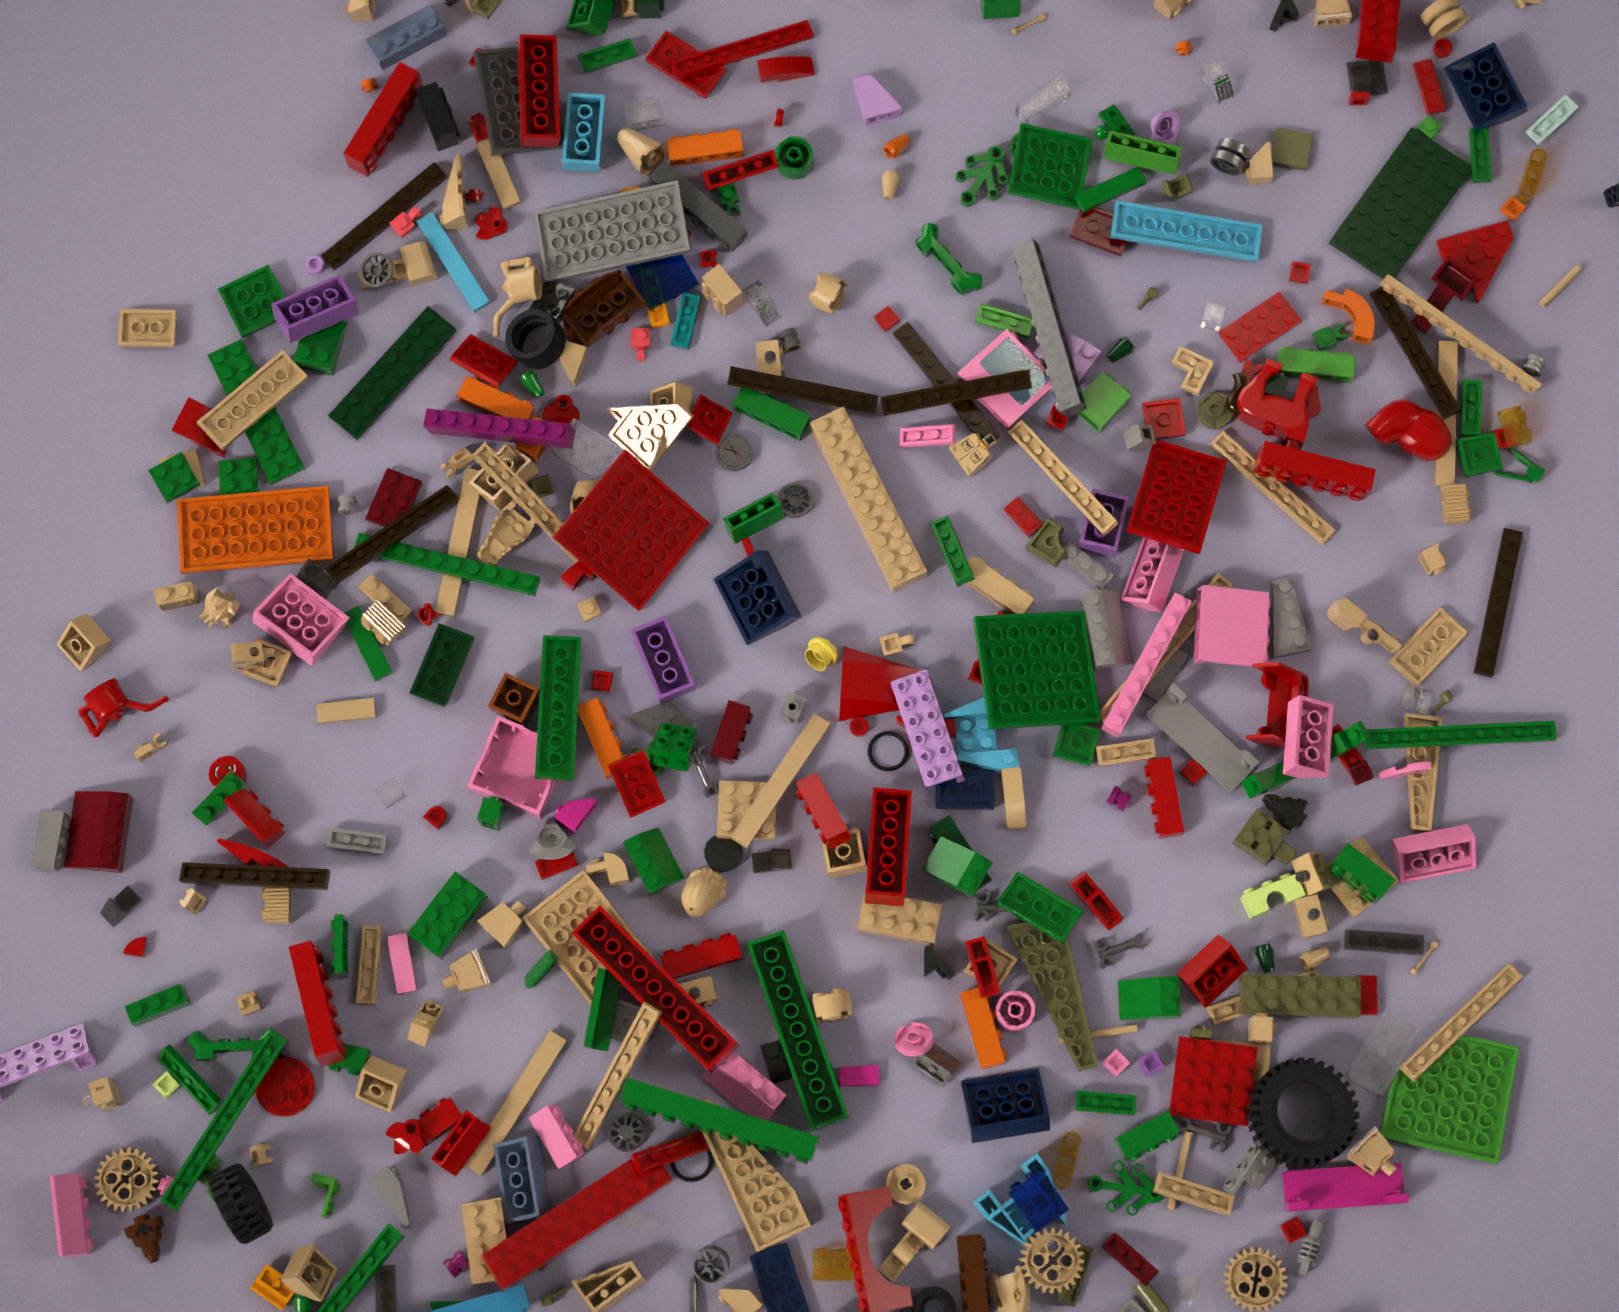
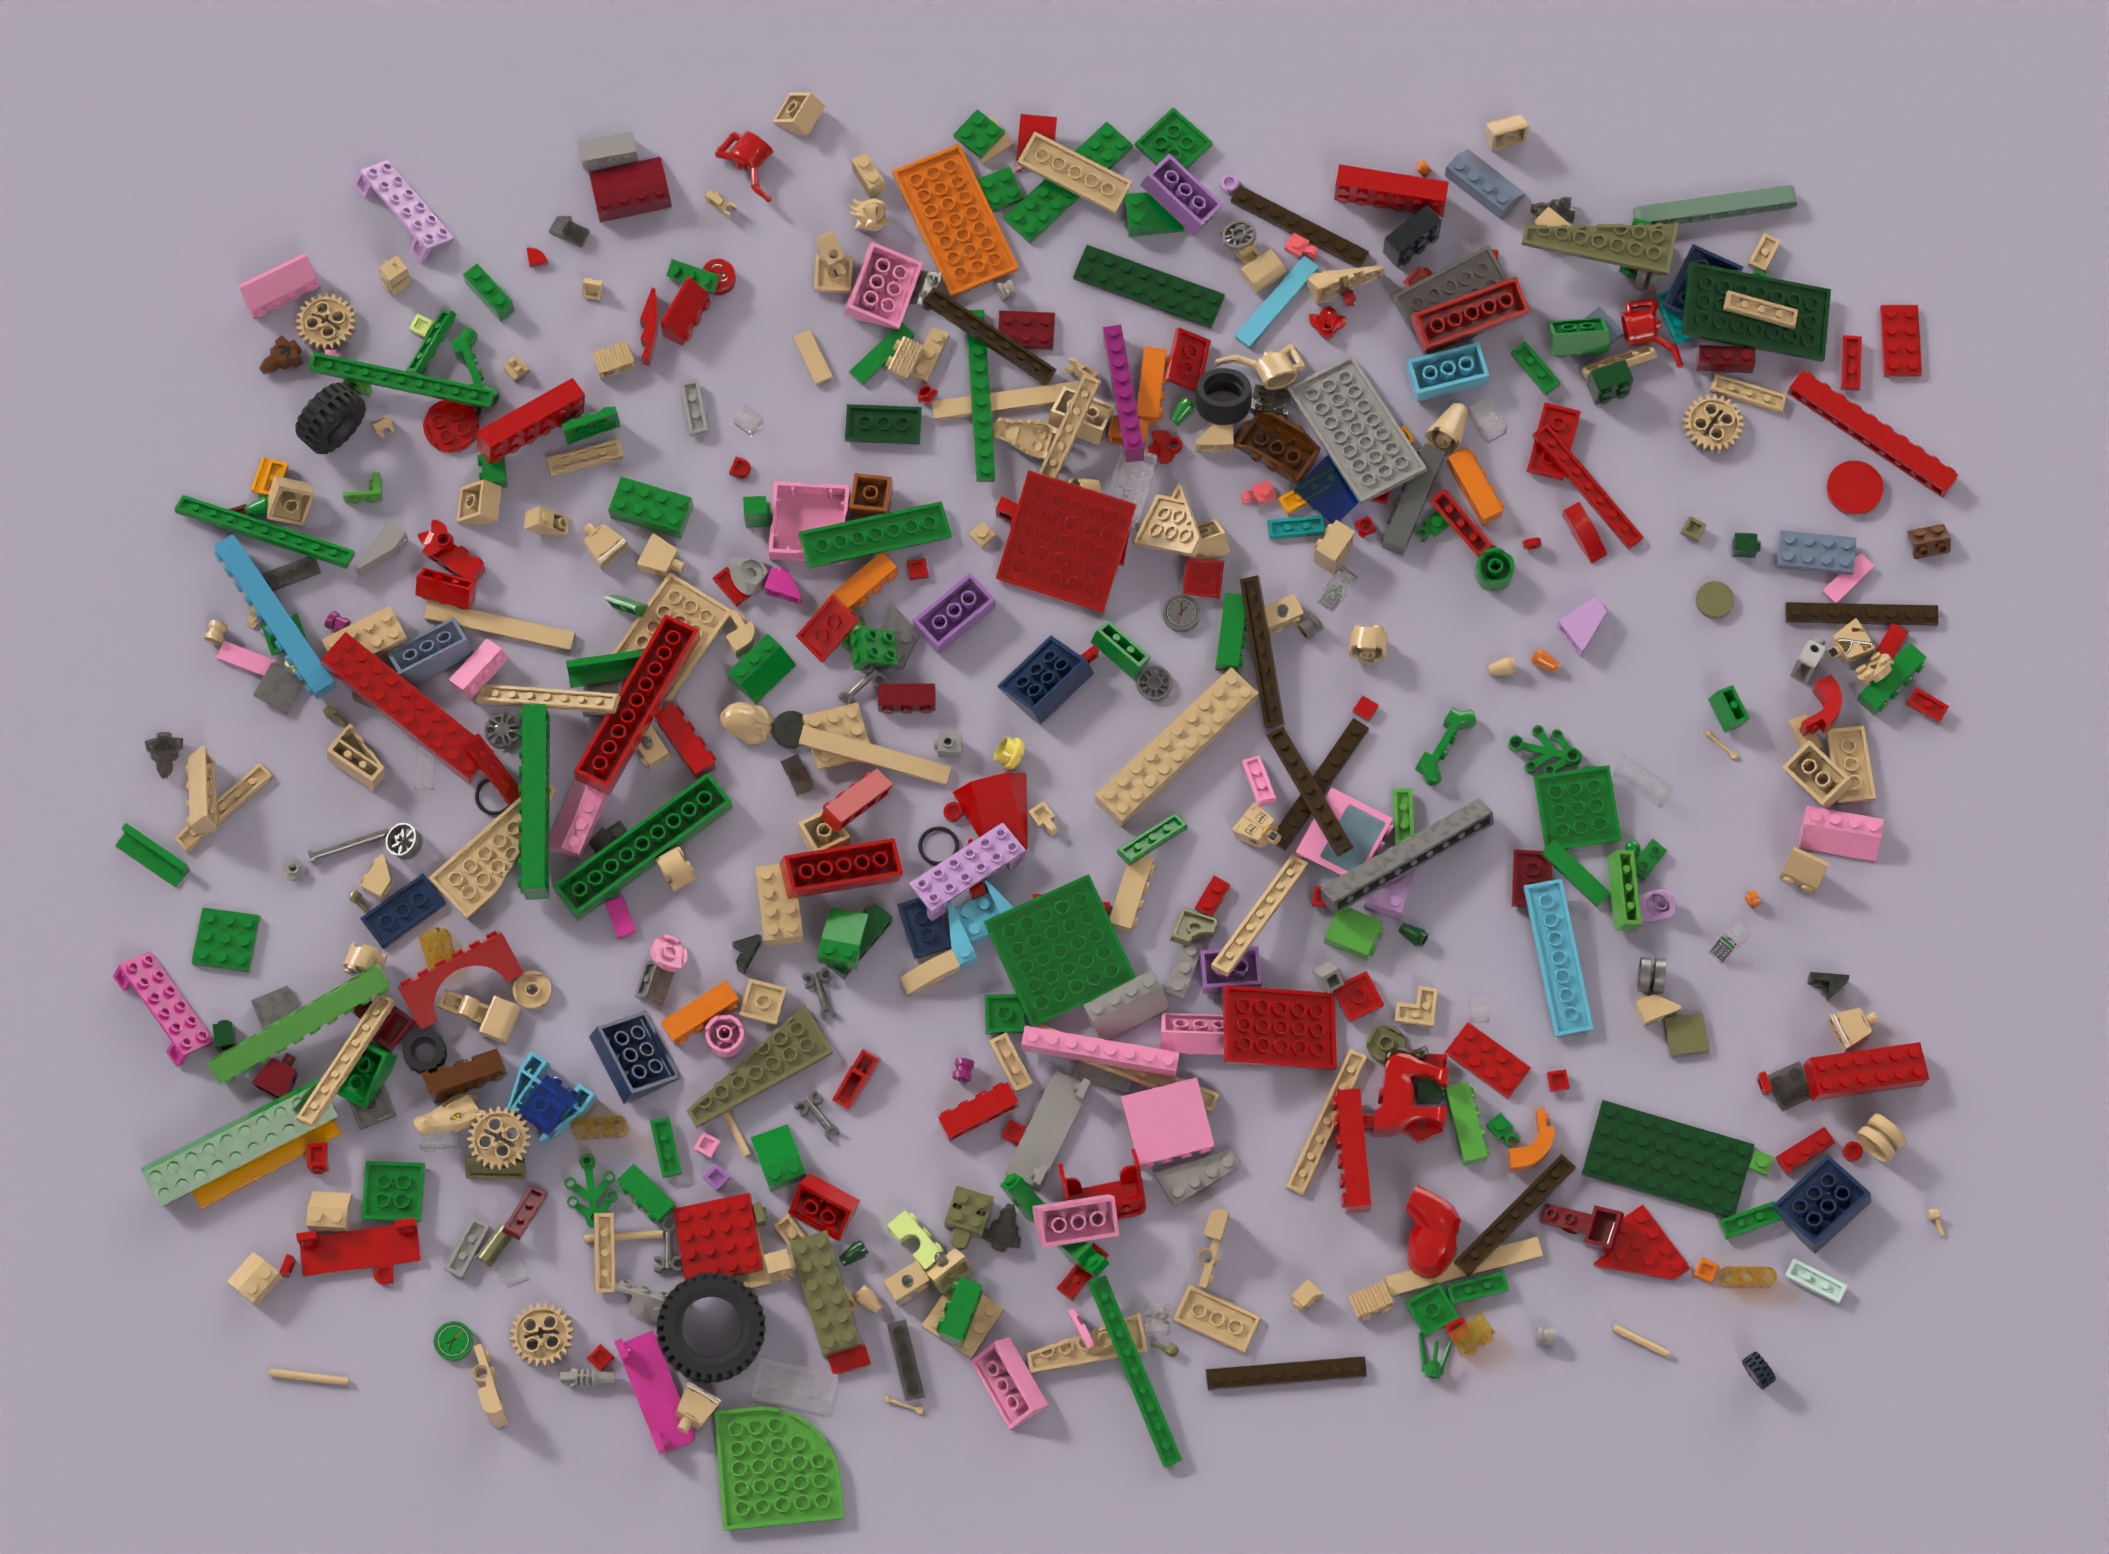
camera: 70 degrees right, 5 degrees down
(147, 328) = (1113, 62): tan plate -> none
(255, 876) = (630, 330): dark brown plate -> none
(402, 963) = (594, 485): bright pink tile -> none
(498, 176) = (1375, 314): tan tile -> none
(542, 486) = (1084, 452): olive plate -> none
(982, 967) = (756, 991): red slope -> none
(1040, 907) = (831, 1028): green tile -> none
(1151, 293) = (1484, 946): olive hand -> none
(1178, 187) = (1602, 936): olive bracket -> none
(1360, 773) = (1065, 1288): dark red tile -> none
(1454, 330) = (1543, 1259): tan plate -> none
(1461, 1022) = (850, 1455): tan tile -> none

